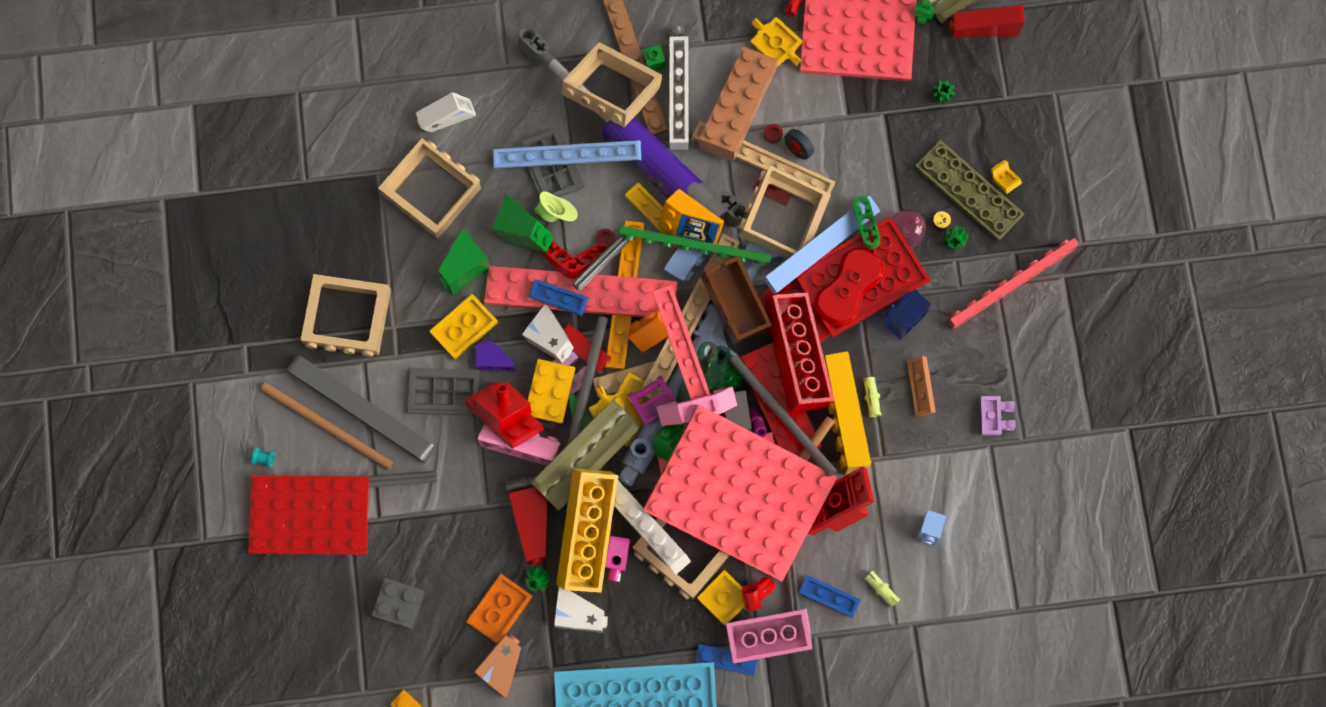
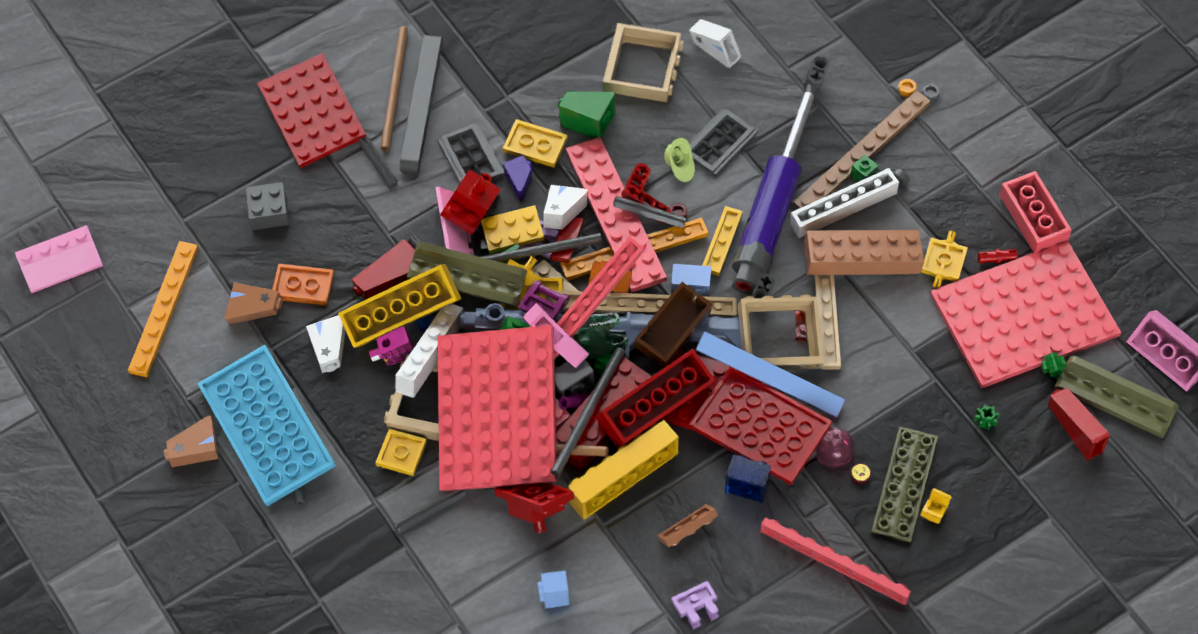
camera: 65 degrees right, 15 degrees down
(263, 457) = (342, 55): teal bush -> none
(367, 348) = (501, 80): tan piece -> none
(520, 227) = (647, 137): green slope -> none
(537, 579) = (341, 297): green gear -> none
(558, 297) = (599, 195): blue tile -> none
(567, 154) = (732, 143): light blue tile -> none
(626, 66) = (822, 120): tan piece -> none
(687, 244) = (709, 281): green plate -> none
(689, 219) = (726, 256): light orange slope -> none
(723, 660) = (346, 481): blue plate -> none
(754, 594) = (413, 469): red piece -> none
(769, 635) = (382, 497): bright pink slope -> none
(773, 133) = (856, 298): dark red tile -> none
(799, 144) = (856, 318): black bush -> none
(829, 596) = (447, 537): blue plate -> none
(856, 275) = (727, 414): red plate -> none
(867, 215) = (810, 409): green beam -> none
(872, 397) = (654, 489): yellowish green pin -> none
(882, 589) = (477, 579): yellowish green pin -> none
(955, 237) = (849, 490): green gear -> none

